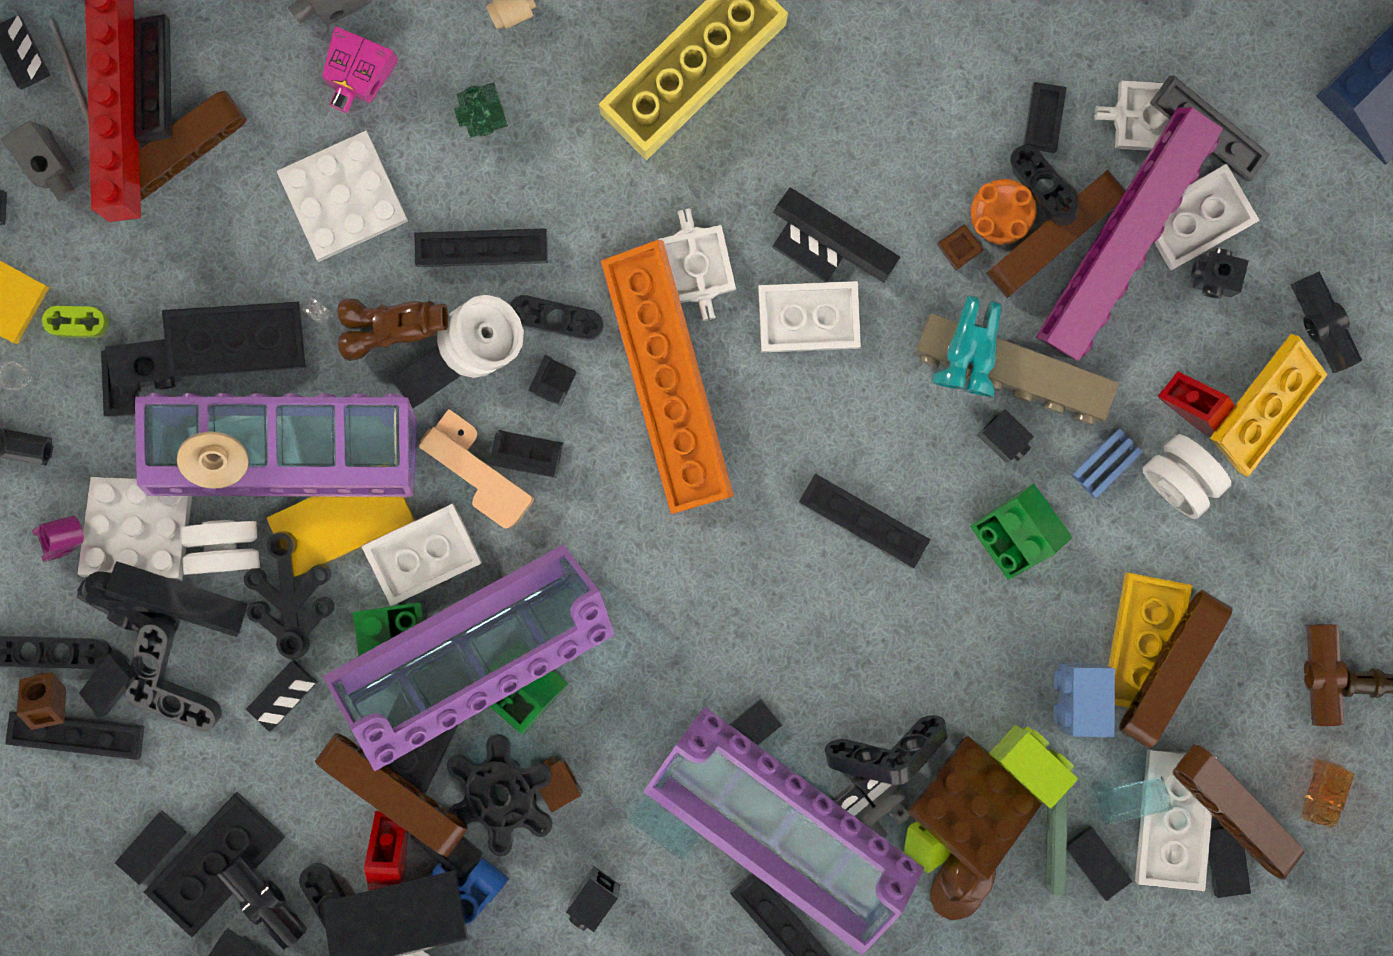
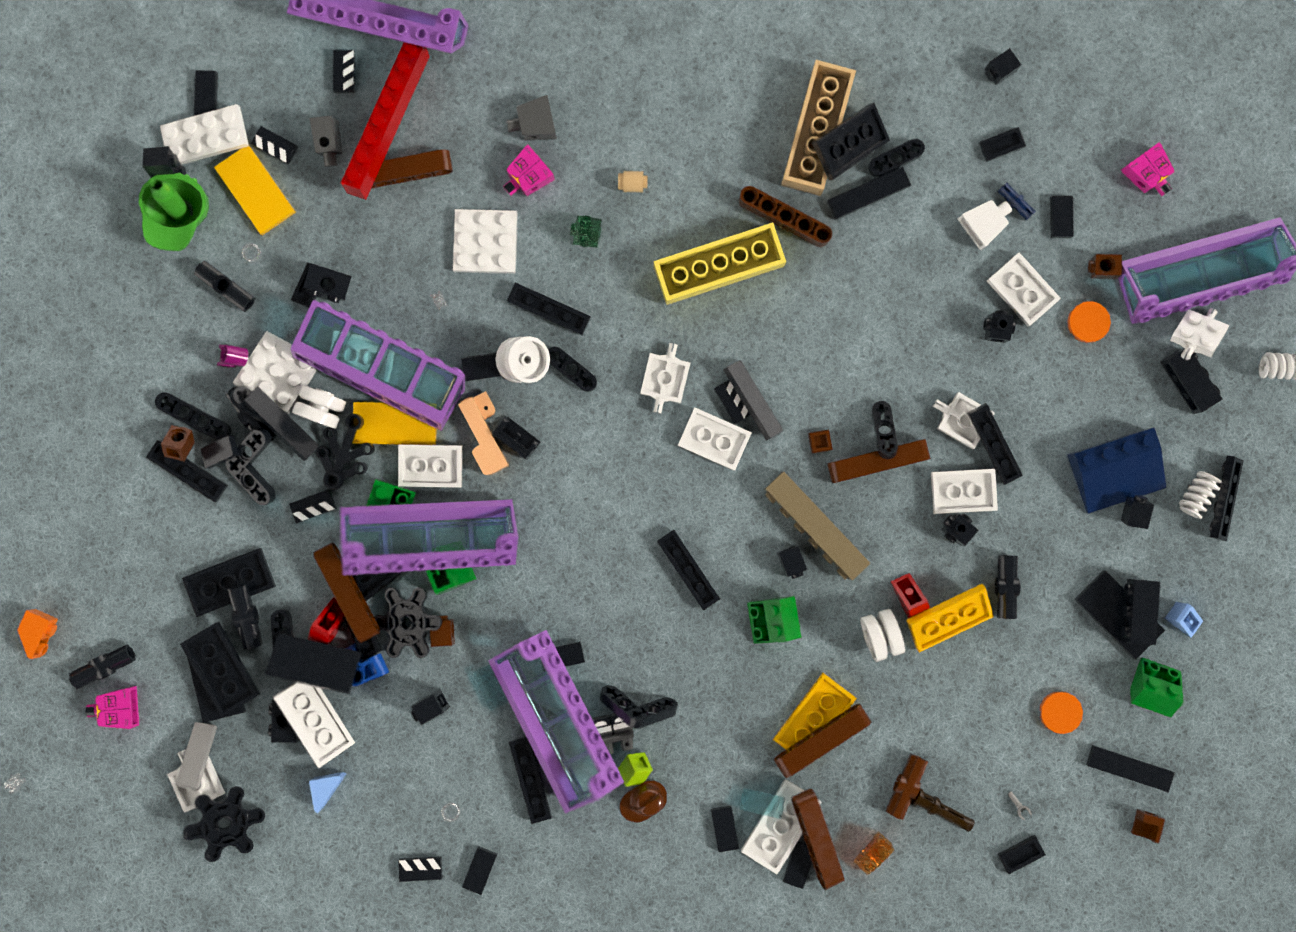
camera: 30 degrees right, 0 degrees up
(70, 71) = (367, 96): light grey piece -> none
(76, 314) = (298, 243): lime beam -> none
(150, 847) = (198, 555): black tile -> none
(152, 78) = (411, 123): black tile -> none
(212, 460) = (338, 356): tan dish -> none
(233, 339) = (384, 292): black tile -> none
(391, 325) = (476, 328): reddish brown piece -> none
(552, 381) = (551, 404): black panel -> none
(667, 377) = (616, 434): orange plate -> none
(972, 345) = (798, 501): teal piece -> none
(975, 808) = (670, 763): reddish brown plate -> none
(1003, 211) = (854, 433): orange dish -> none
(1040, 771) = (715, 758): lime brick -> none
(1045, 116) = (905, 391): black tile -> none
(1056, 847) = (707, 804): sand green tile -> none
(1085, 699) = (762, 732): medium blue brick -> none
(1126, 444) = (859, 599): medium blue tile -> none
(1130, 232) = (918, 481): magenta brick -> none

